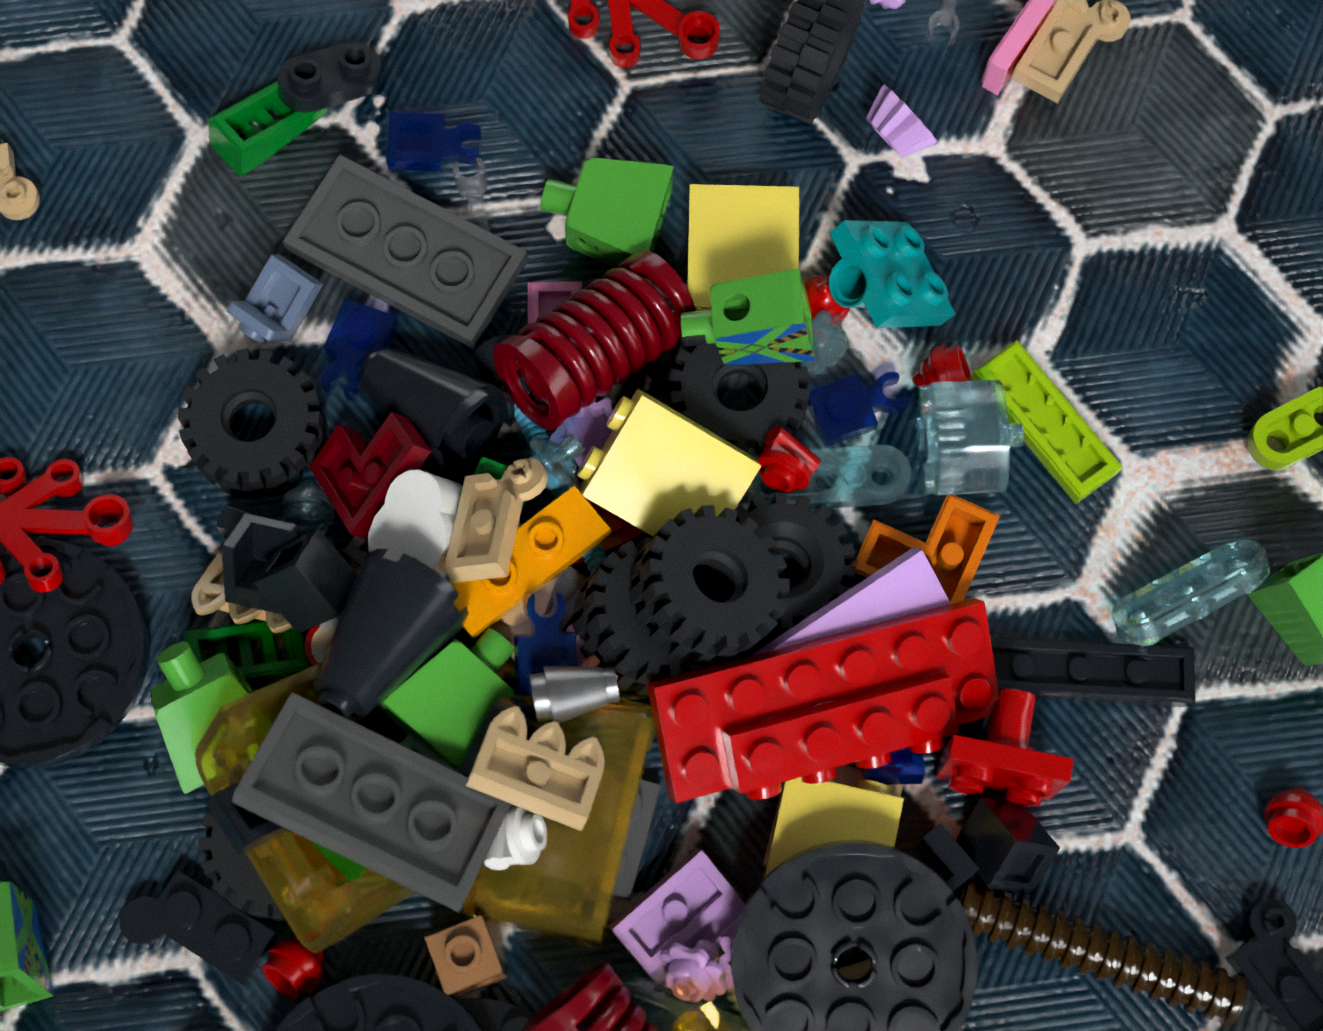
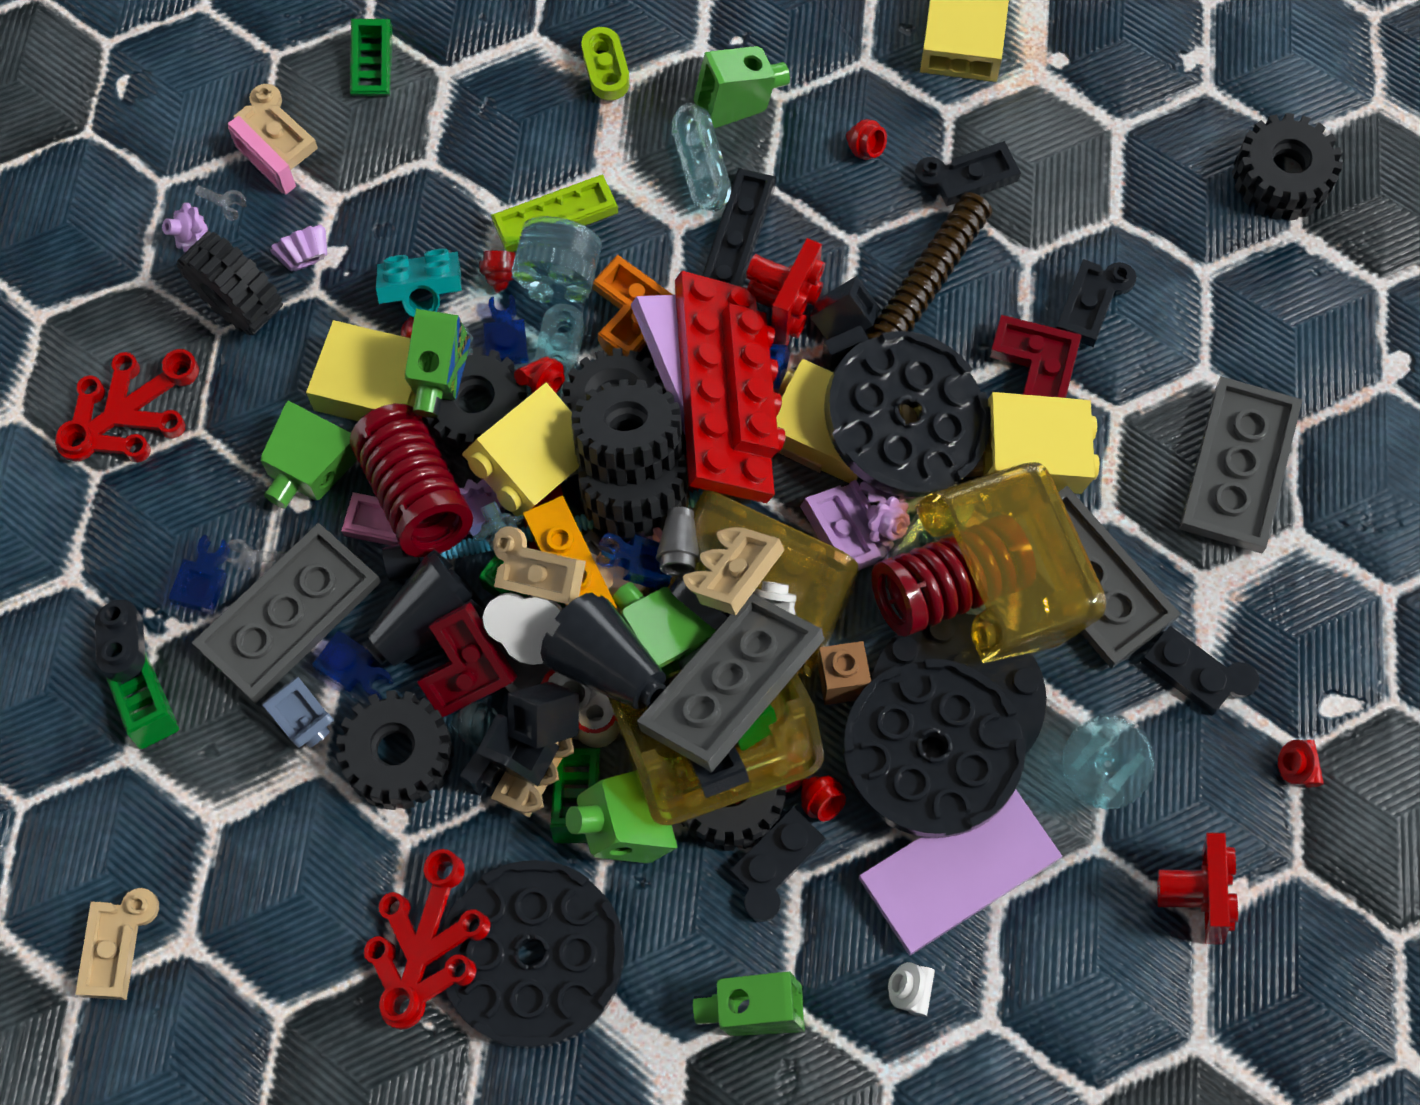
camera: 75 degrees left, 5 degrees down
(1241, 100) = (370, 29): none -> green slope

